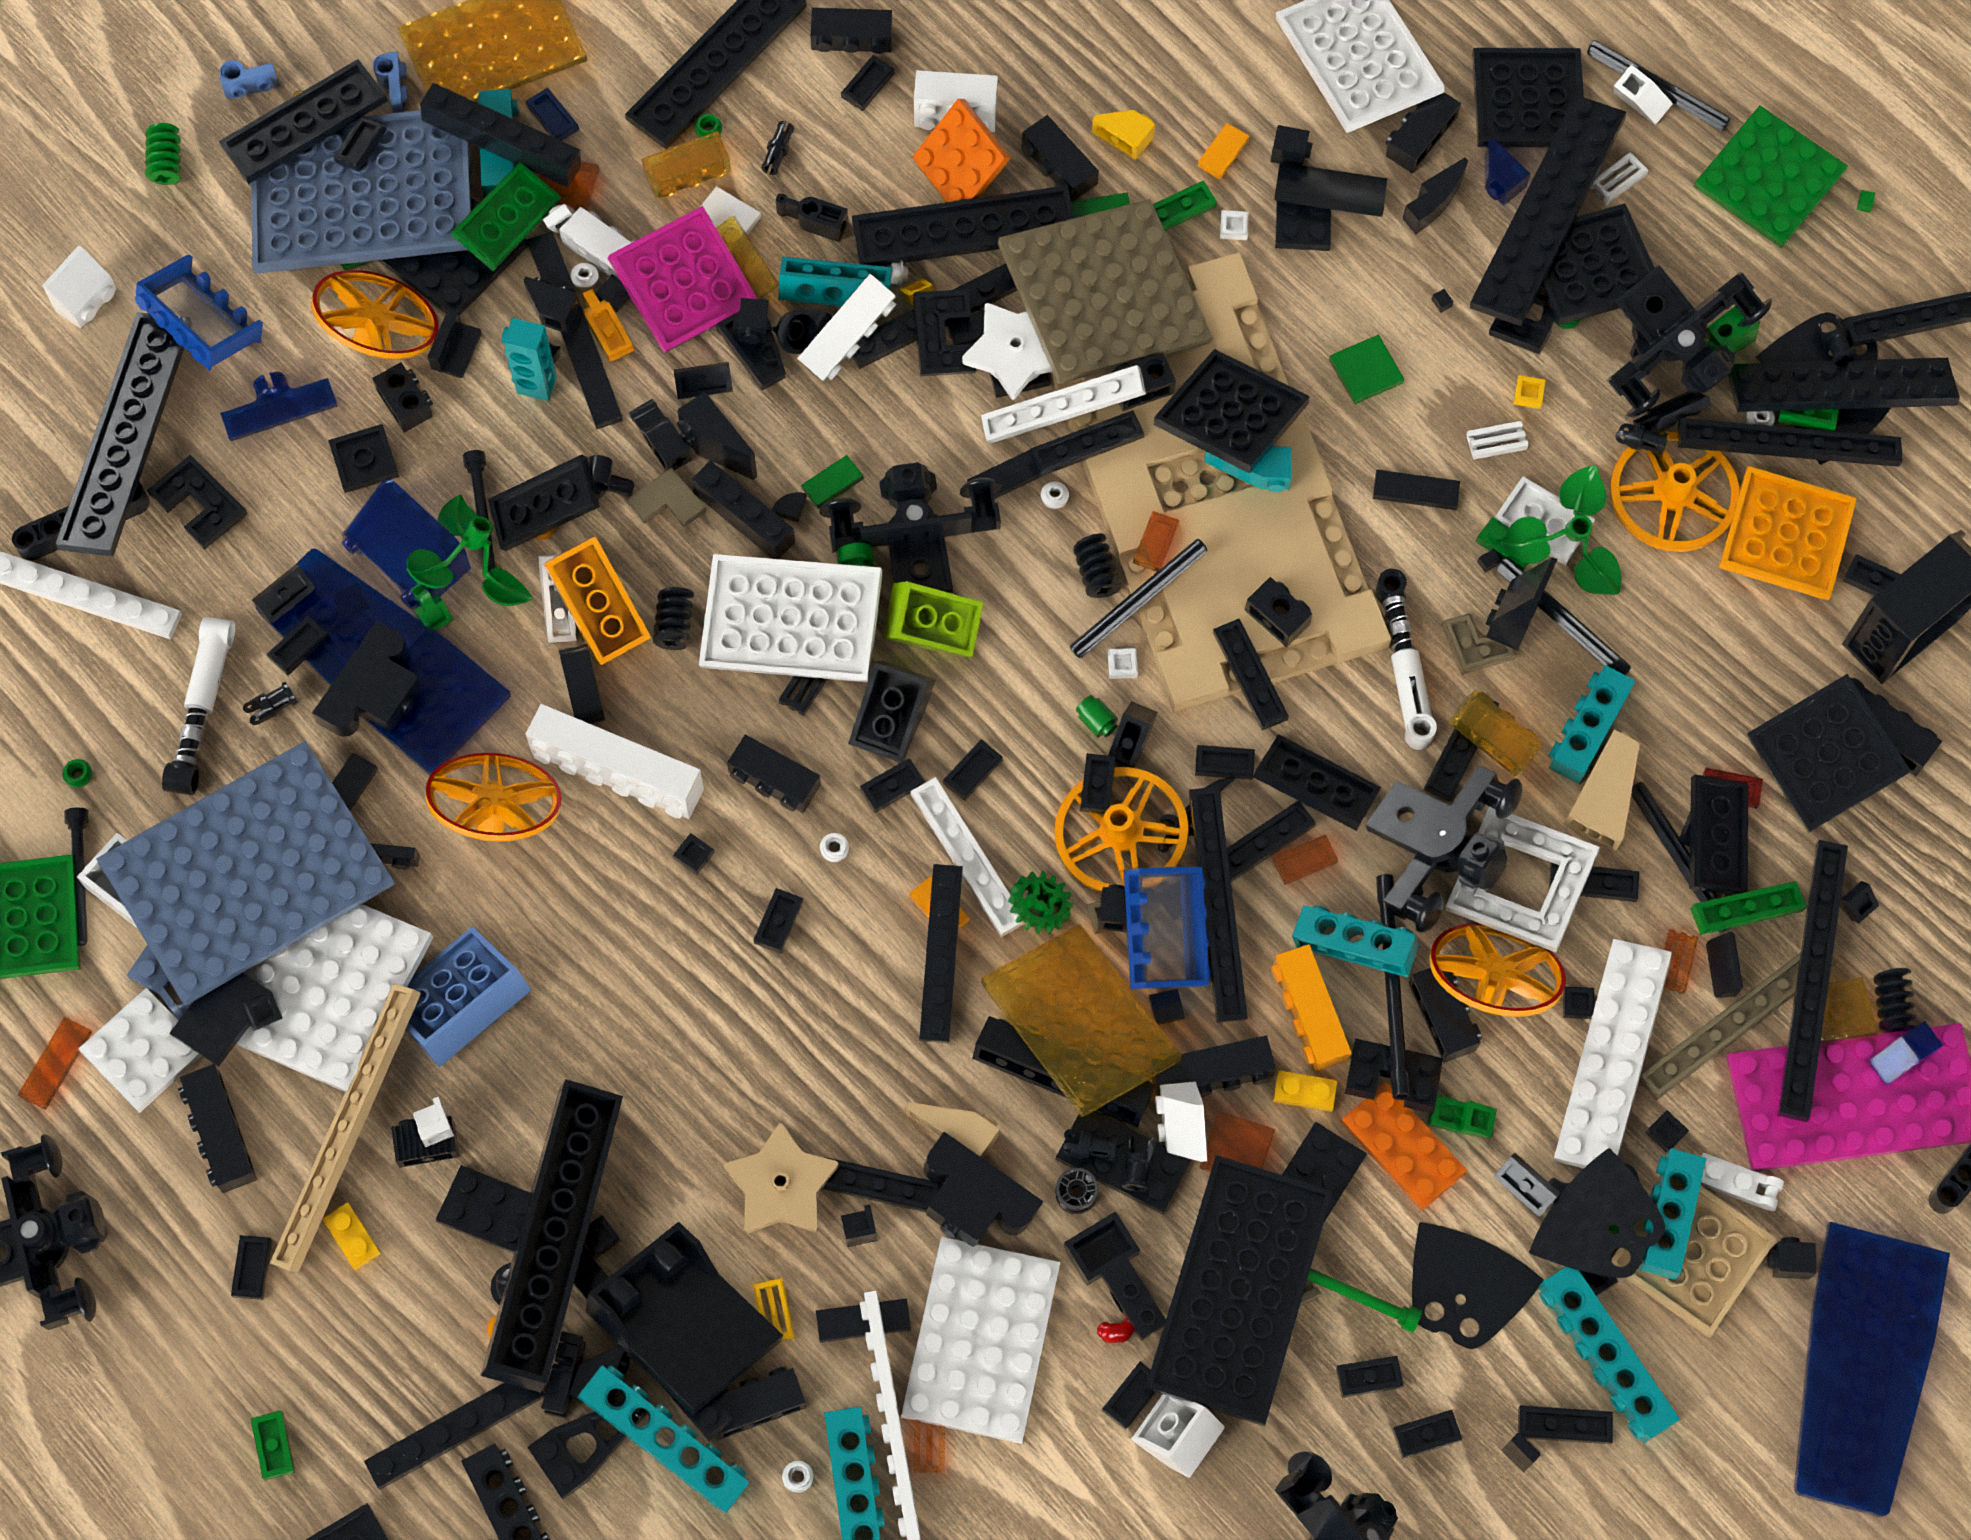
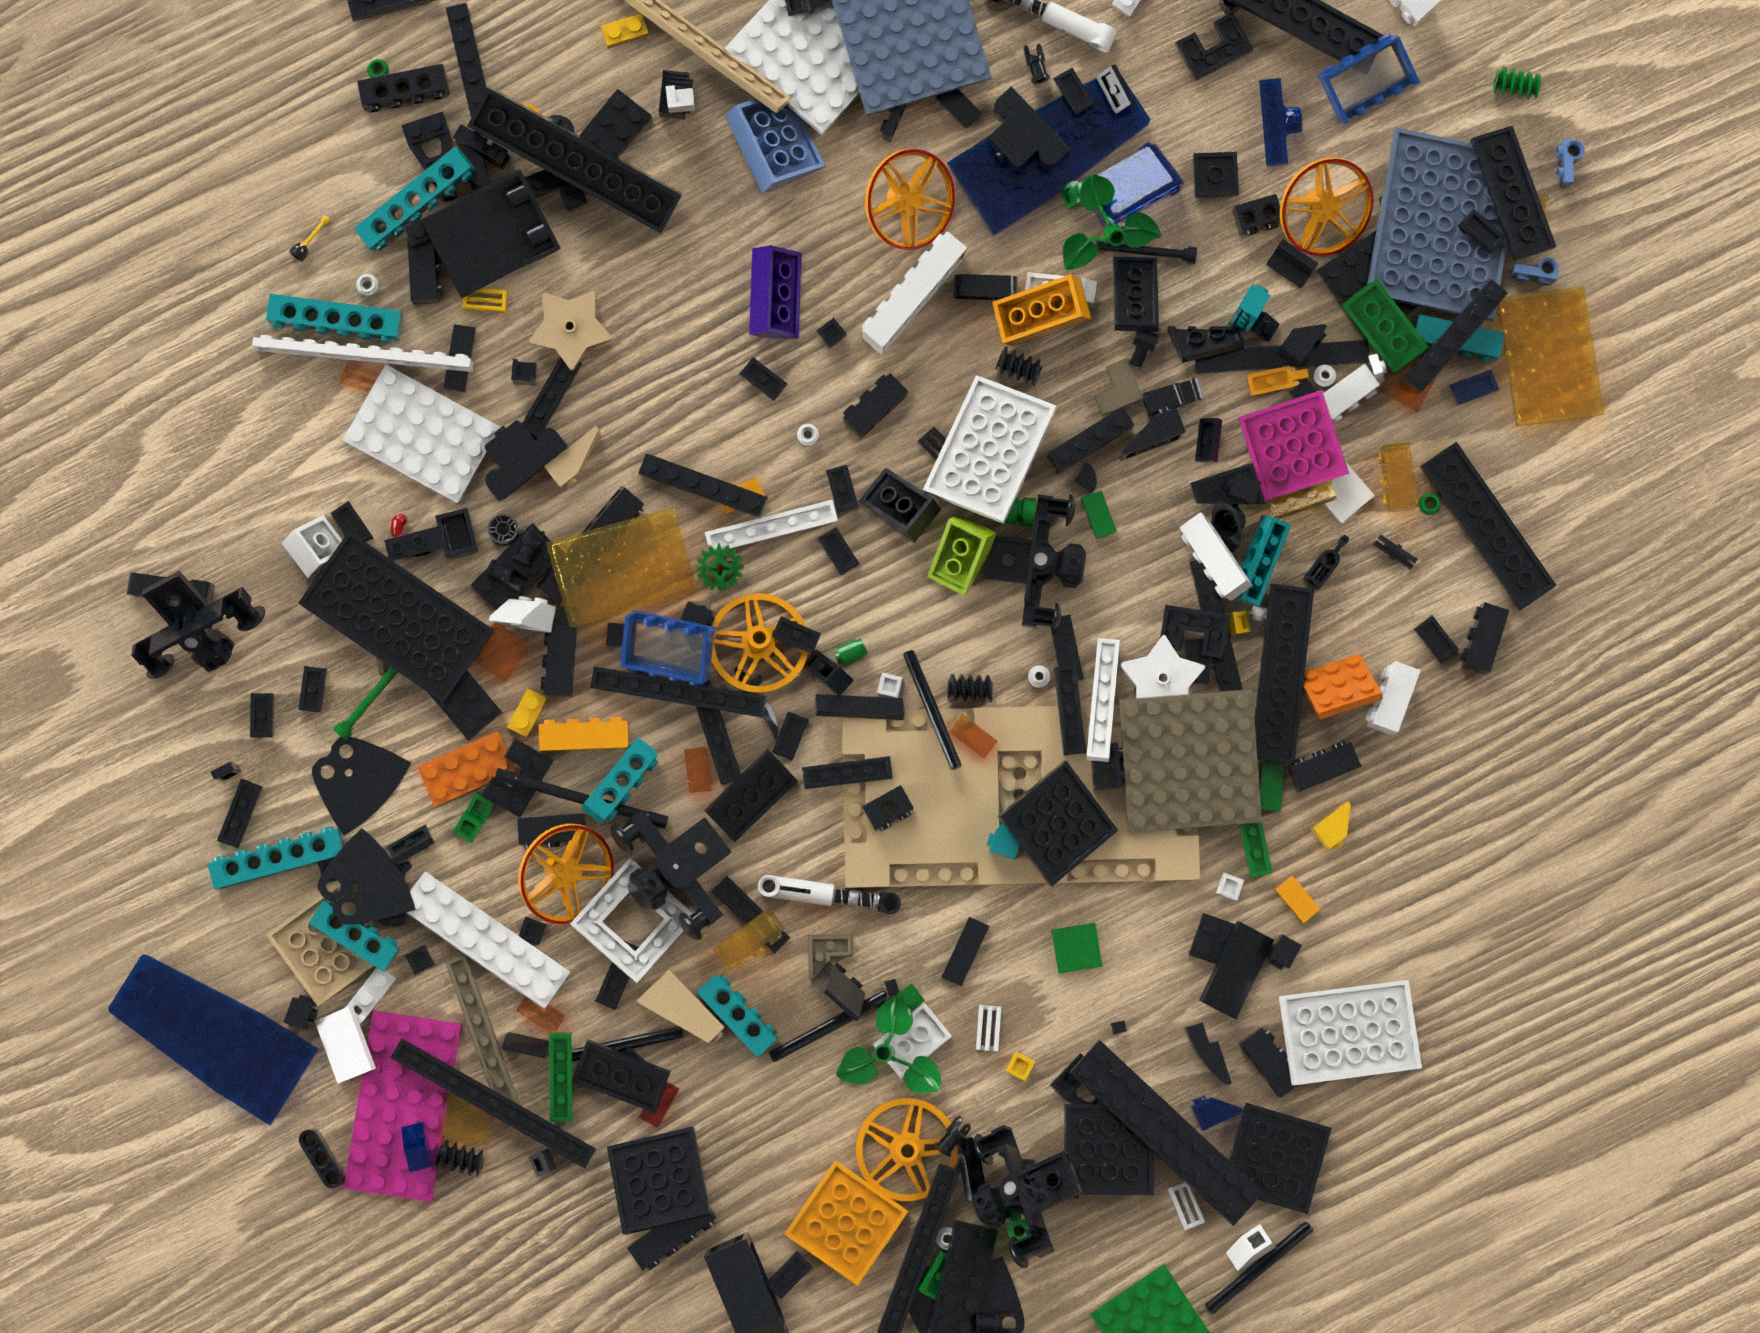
camera: 100 degrees right, 15 degrees up
(582, 414) = (1202, 343): none -> black wing
(660, 938) = (775, 292): none -> dark purple slope
(1163, 684) = (859, 707): none -> black tile
(1811, 1188) = (345, 1044): none -> white tile

